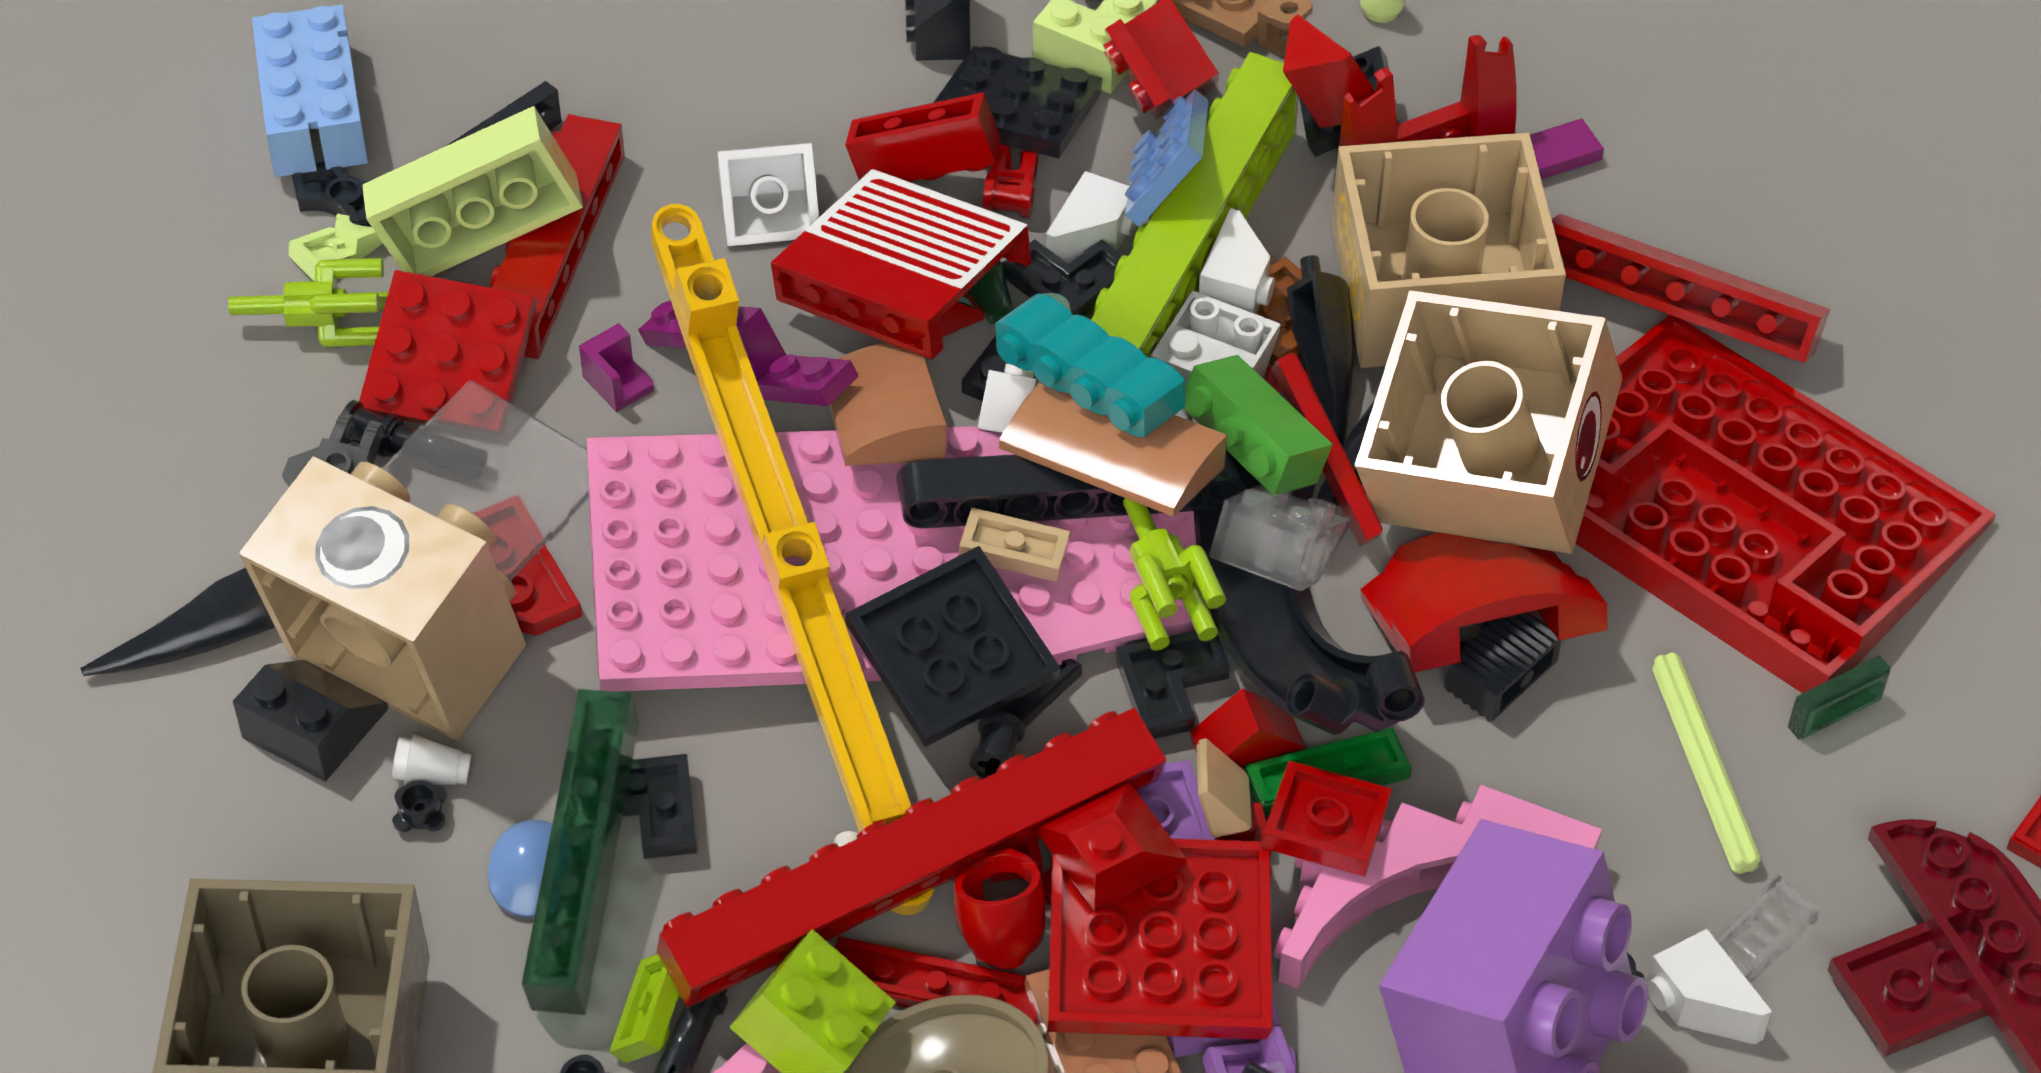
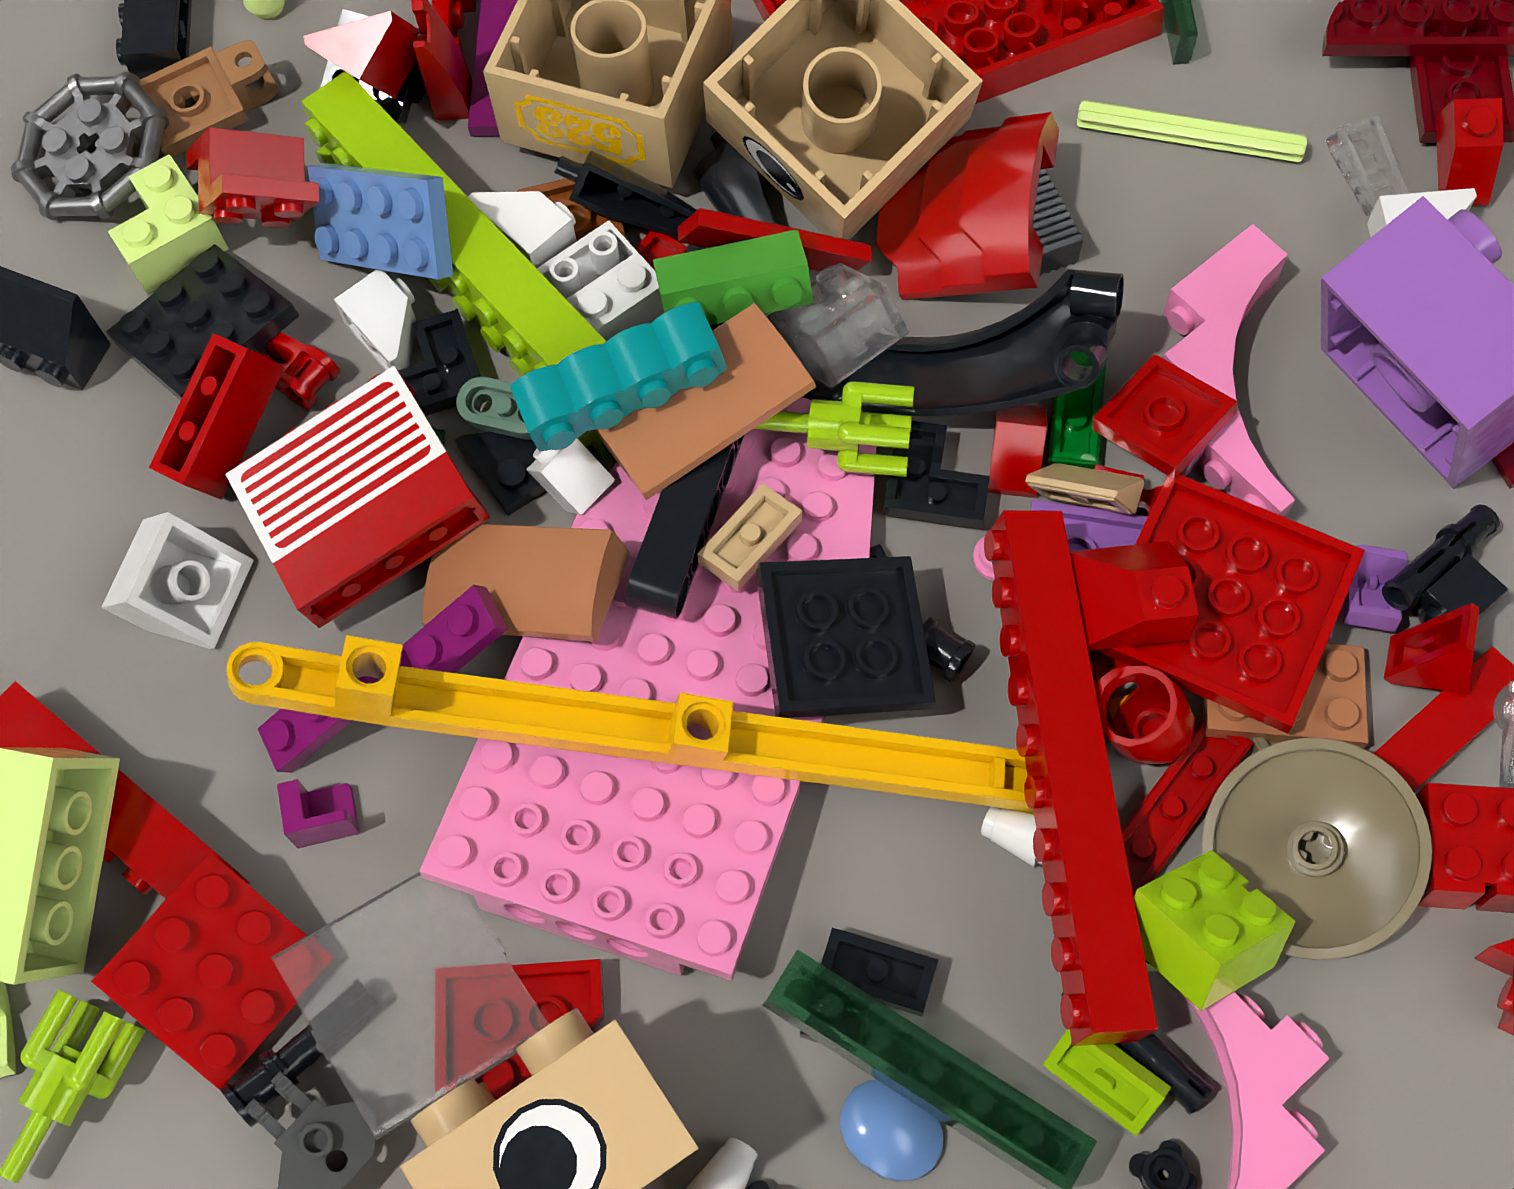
camera: 60 degrees left, 15 degrees up
(1821, 997) = (1470, 146): none -> red slope

